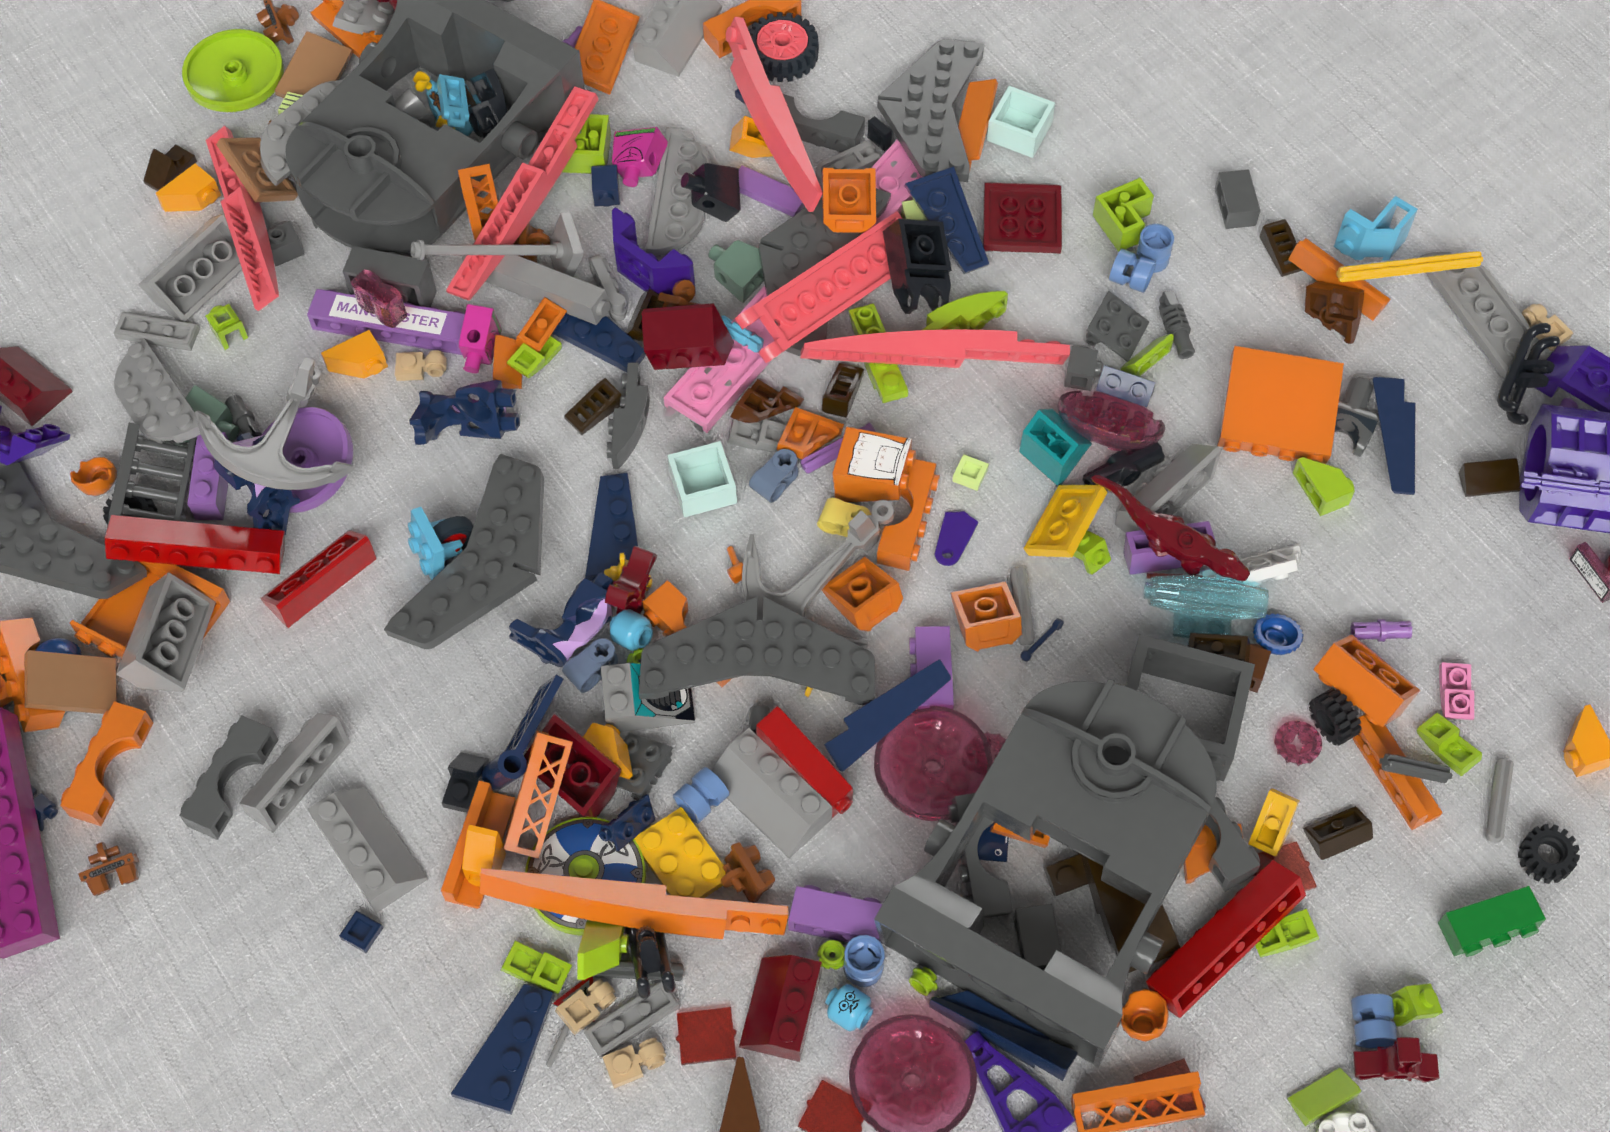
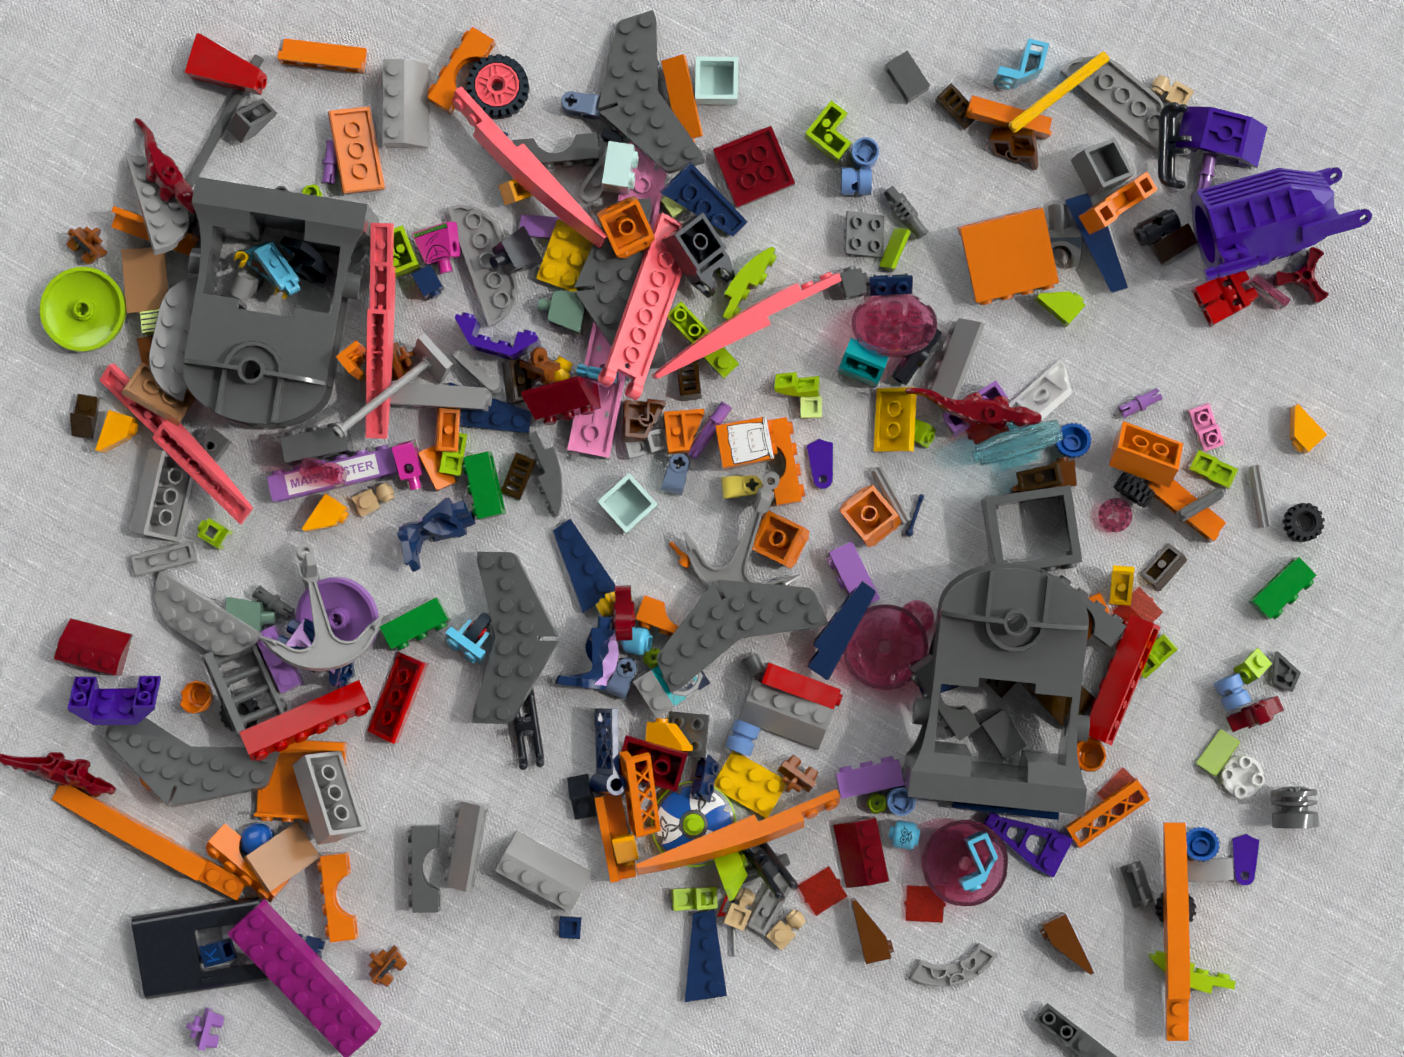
camera: 20 degrees left, 25 degrees up
(382, 504) = (415, 624): none -> green brick
(449, 671) = (528, 726): none -> black piece
(549, 398) = (484, 485): none -> green brick
(765, 213) = (564, 257): none -> yellow plate
(861, 95) = (584, 104): none -> sand blue piece
(872, 142) = (618, 168): none -> light aqua piece
(912, 1091) = (974, 880): none -> medium azure piece
(959, 440) = (792, 385): none -> lime slope
(1432, 359) = (1102, 167): none -> dark grey piece
(1456, 1033) = (1284, 673): none -> dark grey piece
(1460, 401) = (1117, 202): none -> orange arch
(1466, 448) = (1150, 233): none -> black piece
(1533, 554) = (1224, 297): none -> red hips

